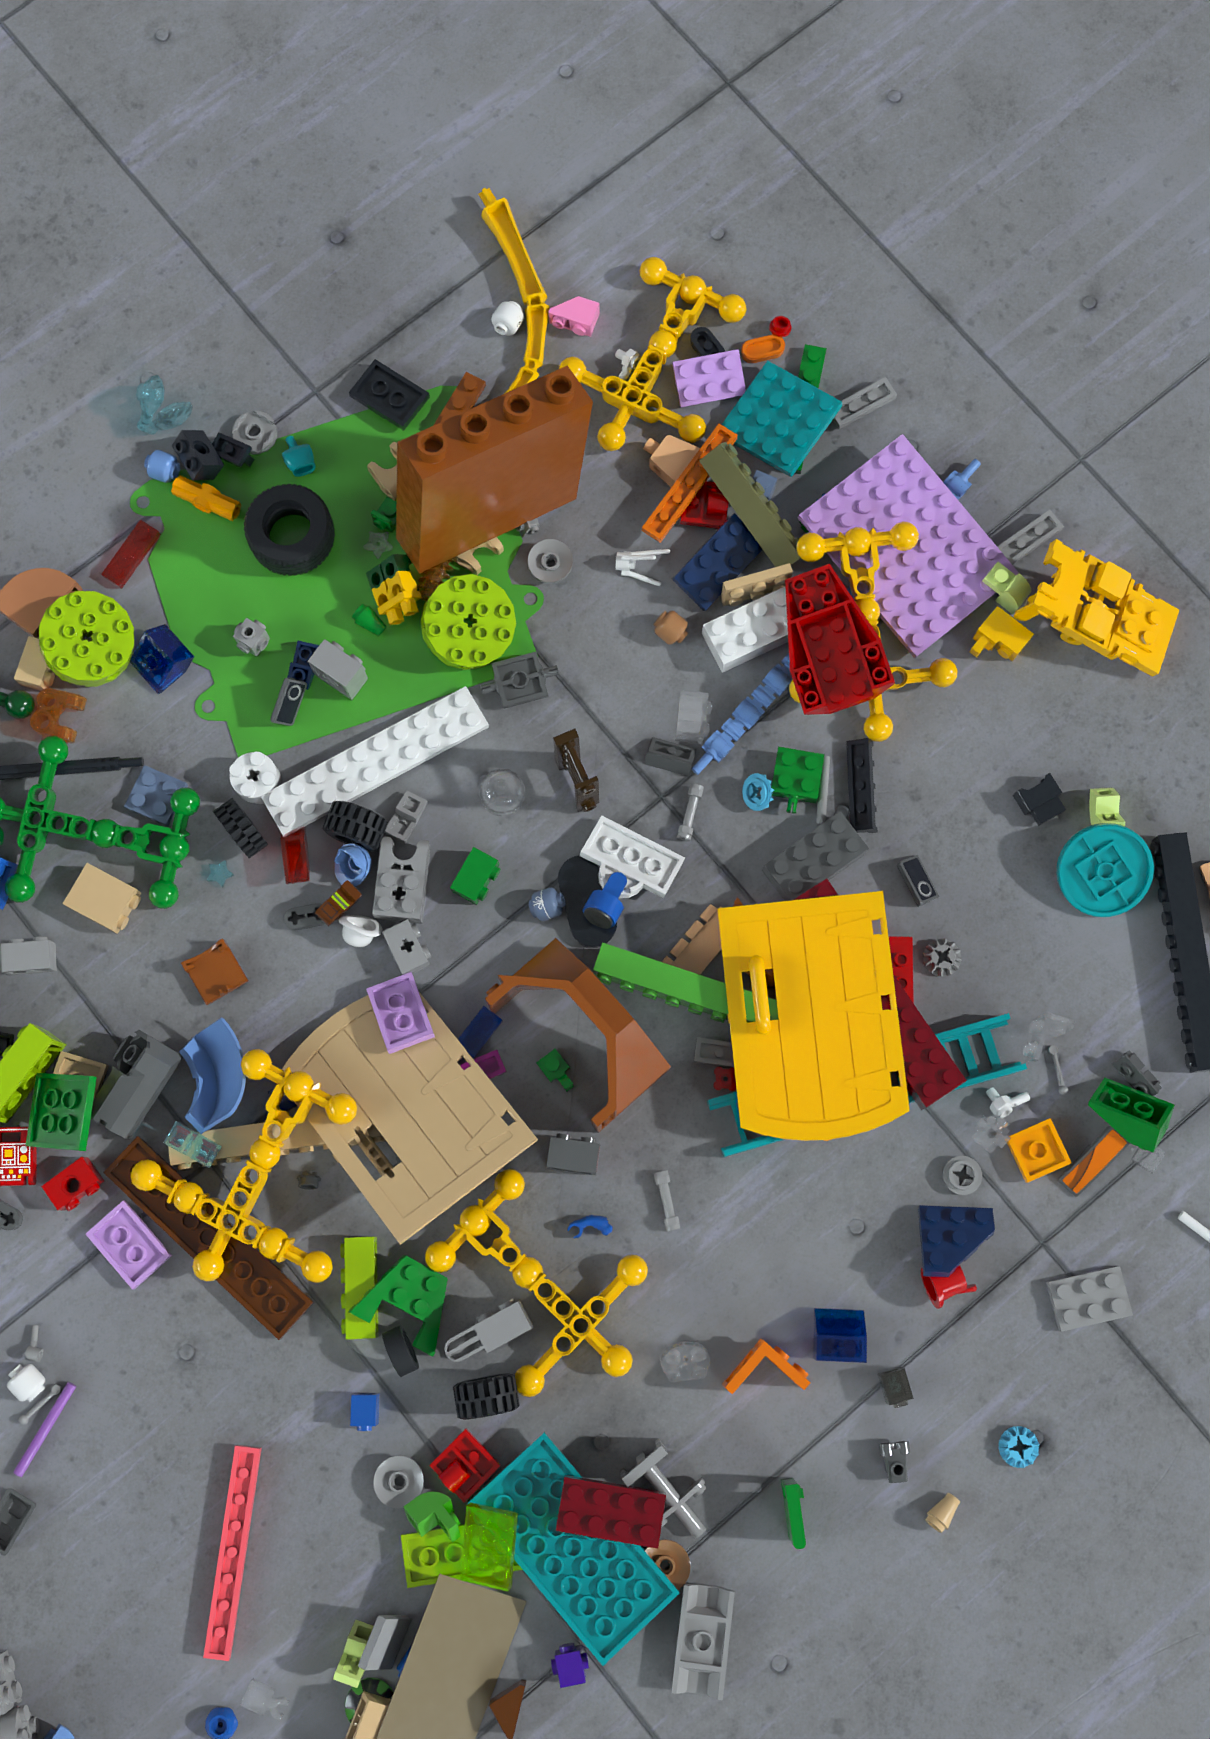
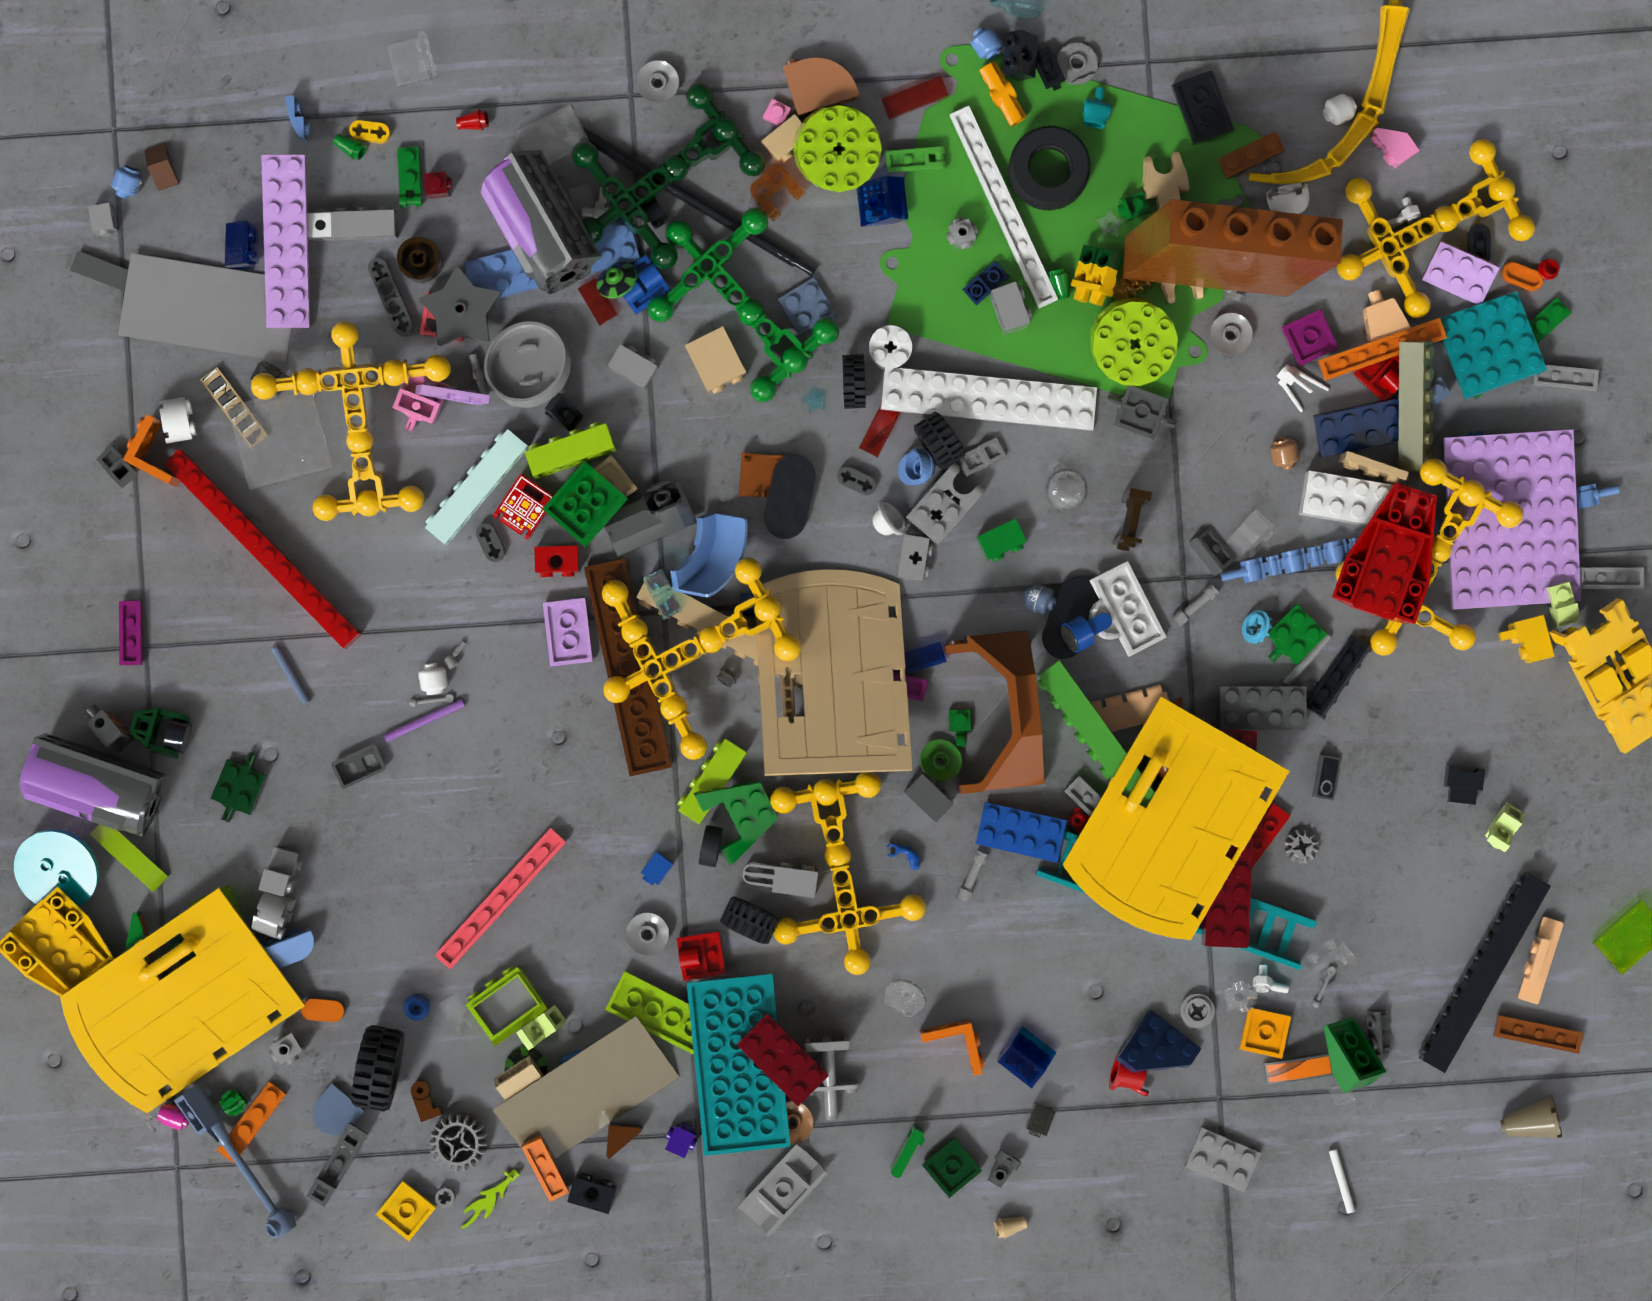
camera: 35 degrees right, 10 degrees up
(13, 648) = (776, 113): none -> bright pink plate
(167, 603) = (915, 159): none -> bright green plate
(253, 972) = (789, 496): none -> black tile
(274, 591) = (1003, 207): none -> white plate
(288, 701) = (955, 306): slope -> none
(307, 1655) = (506, 1005): none -> window
(338, 903) = (887, 489): reddish brown leg -> none
(384, 1642) = (566, 1033): light grey tile -> none
(400, 1013) = (876, 604): lavender plate -> none
(432, 1510) = (657, 970): bright green brick -> none
(489, 1546) = (681, 1022): clear neon green plate -> none
(560, 1104) = (943, 751): none -> bright green dish
(620, 518) = (1309, 338): none -> magenta plate
(682, 1126) = (1022, 832): none -> blue plate
(847, 1496) = (951, 1167): none -> dark green plate
(1009, 1439) = (1092, 1212): medium azure gear -> none
(1105, 869) = (1469, 869): teal plate -> none

